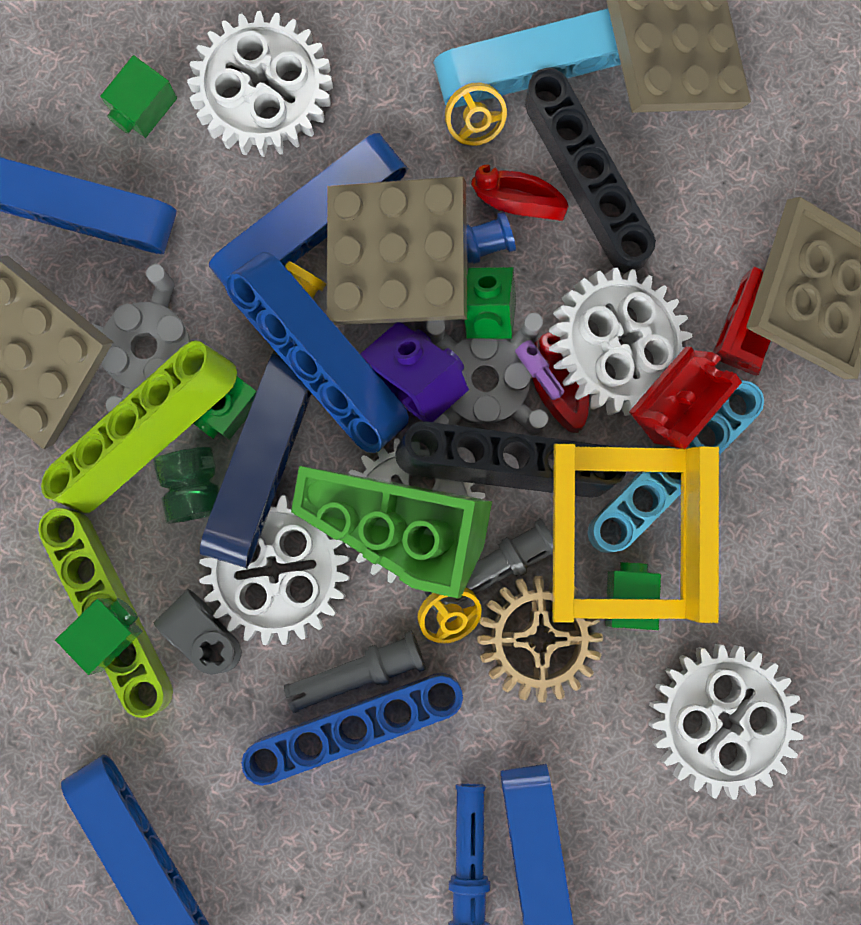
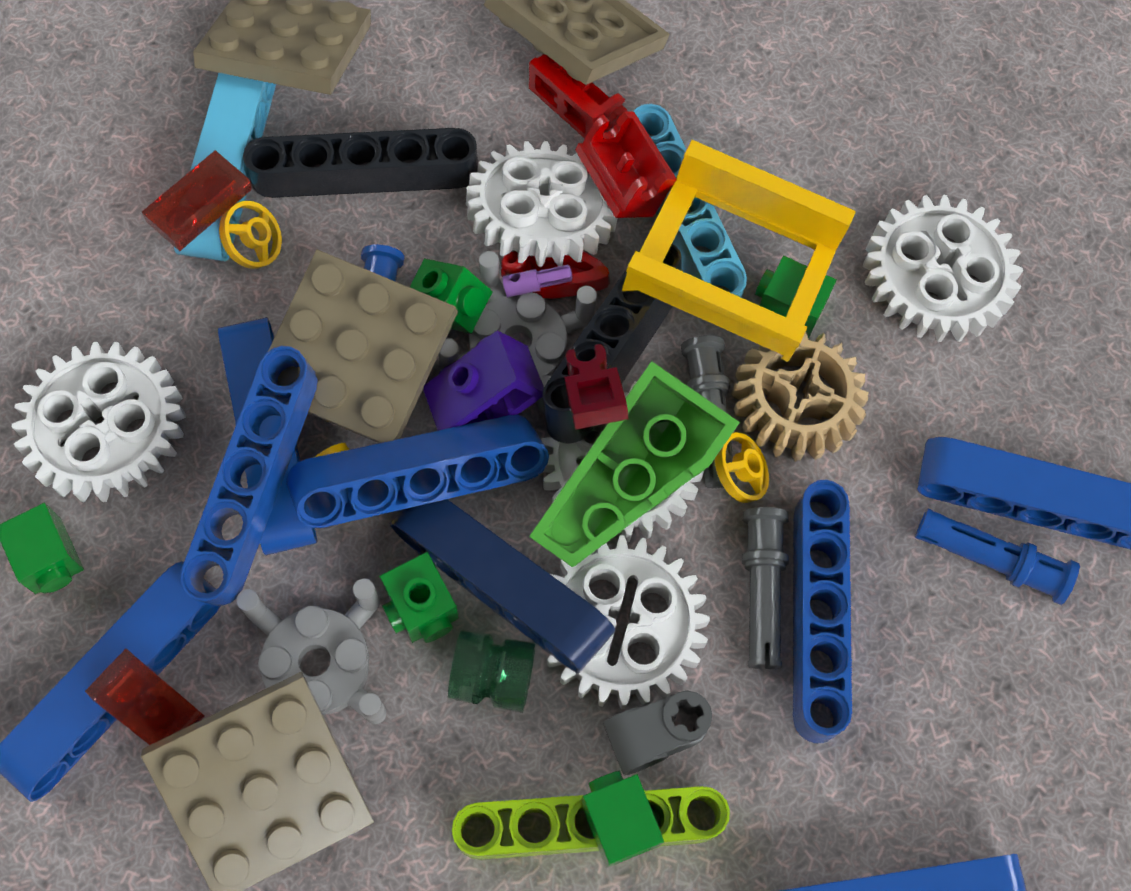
camera: 70 degrees left, 15 degrees down
(50, 238) = (142, 699): none -> clear red plate
(139, 427) = (400, 716): lime beam -> none
(224, 217) = (255, 502): none -> blue beam
(430, 467) = (594, 390): none -> dark red plate
(473, 55) = (197, 200): none -> clear red plate
(519, 193) = (353, 228): red arm -> none

